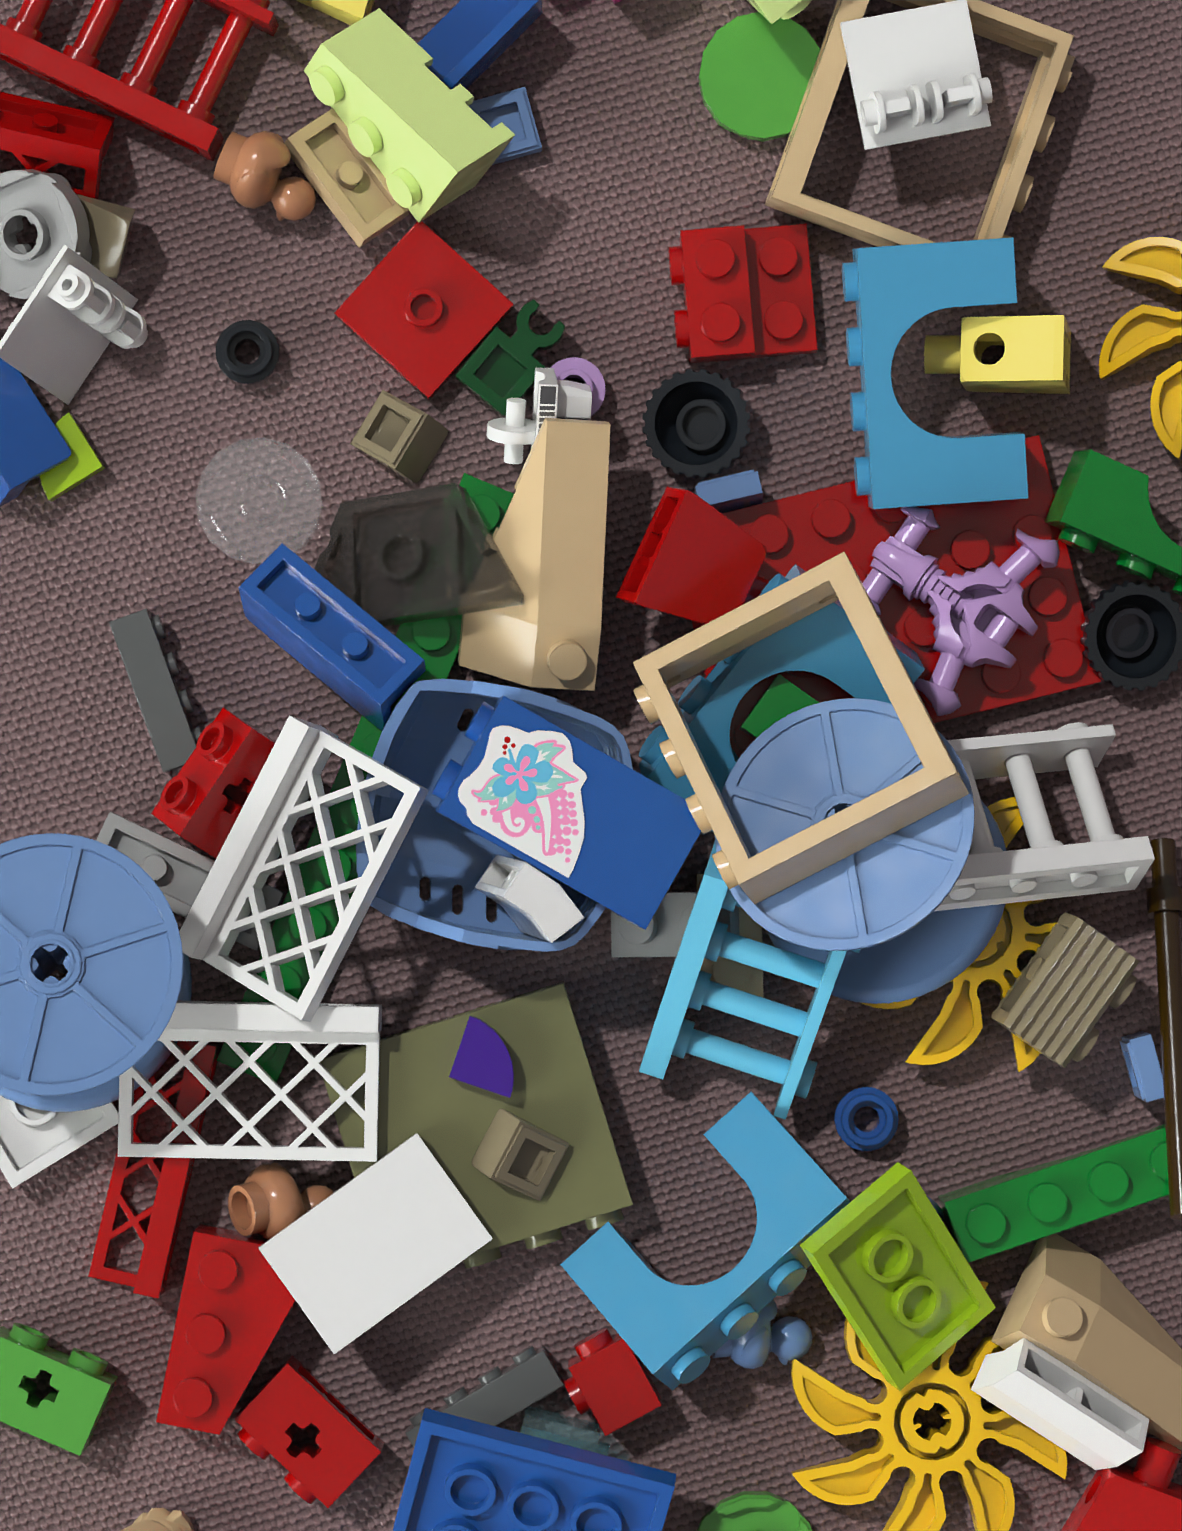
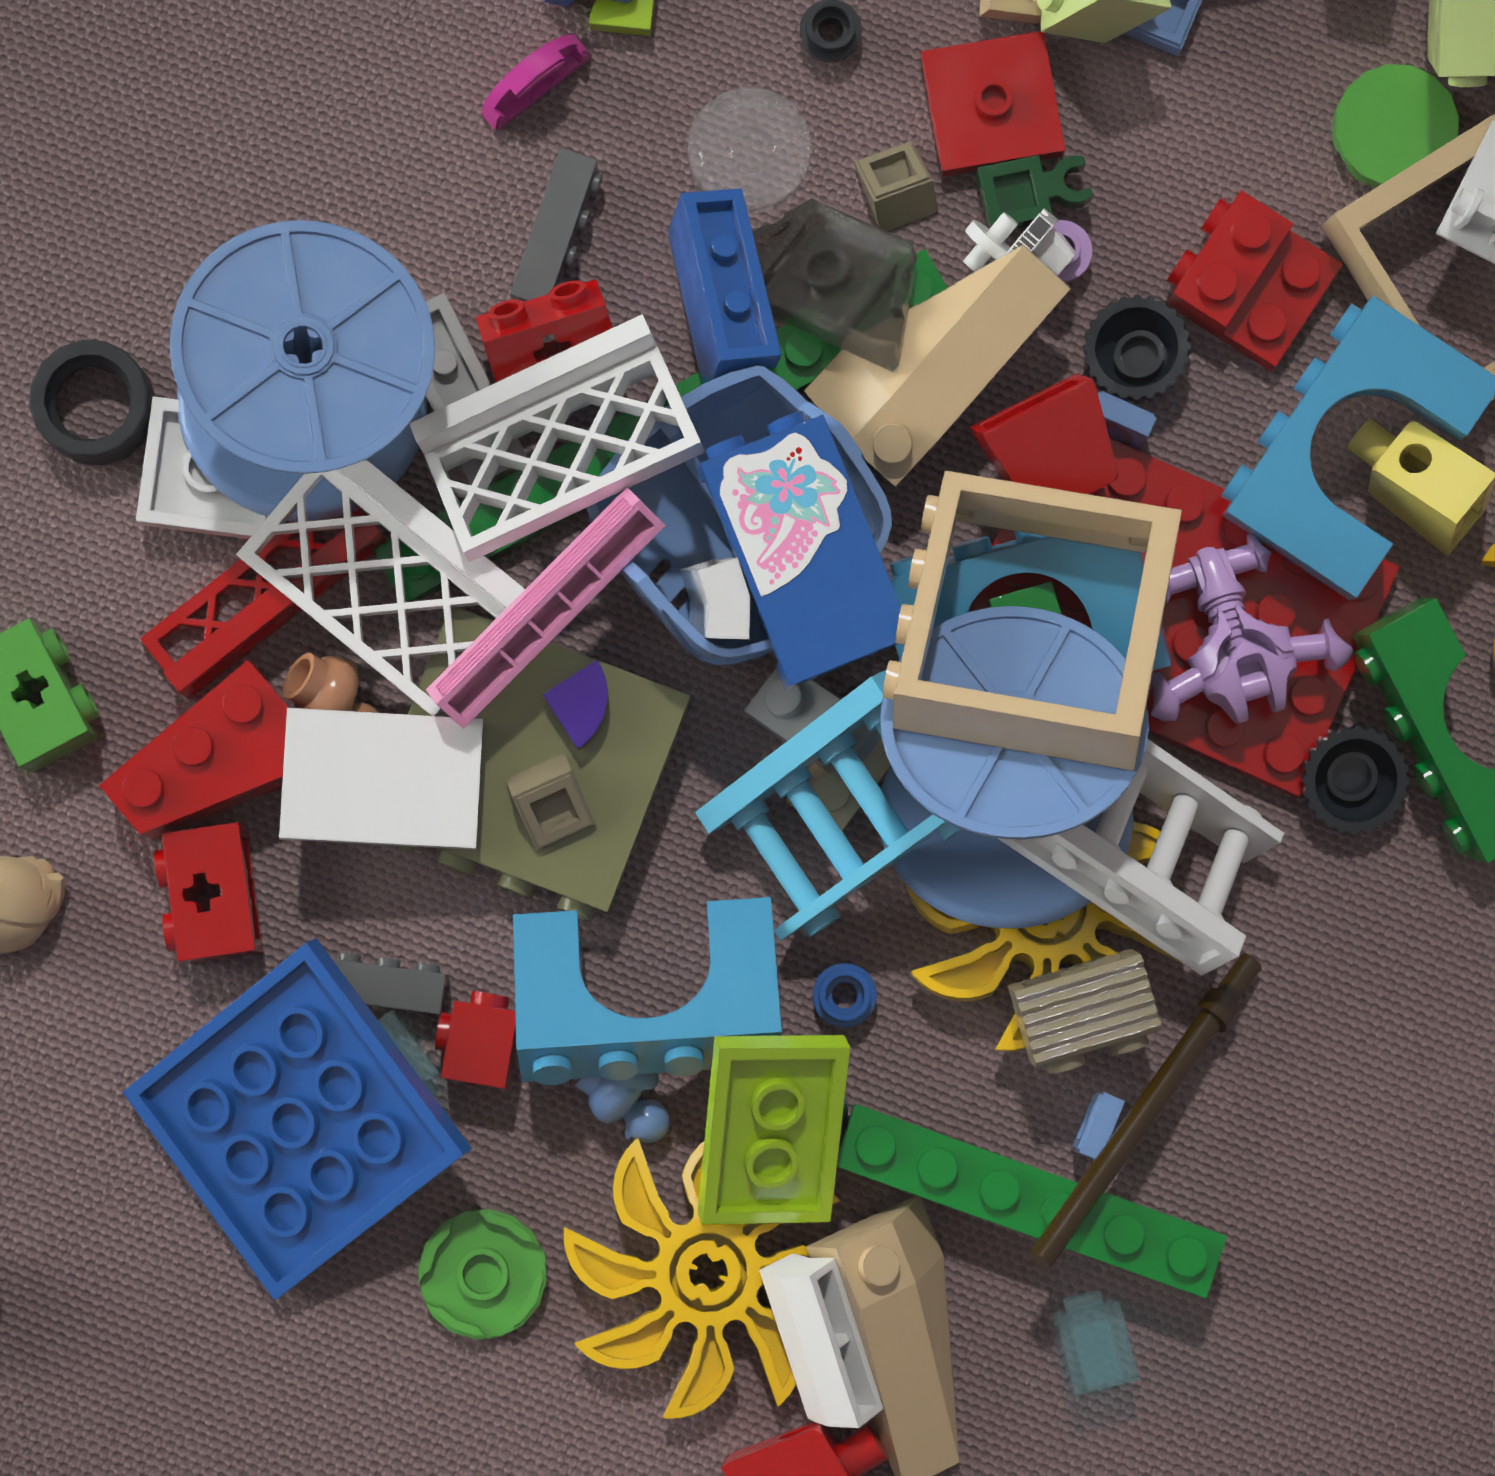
camera: 40 degrees right, 5 degrees down
(42, 578) = (533, 79): none -> dark pink tile
(400, 1011) = (545, 608): none -> bright pink piece

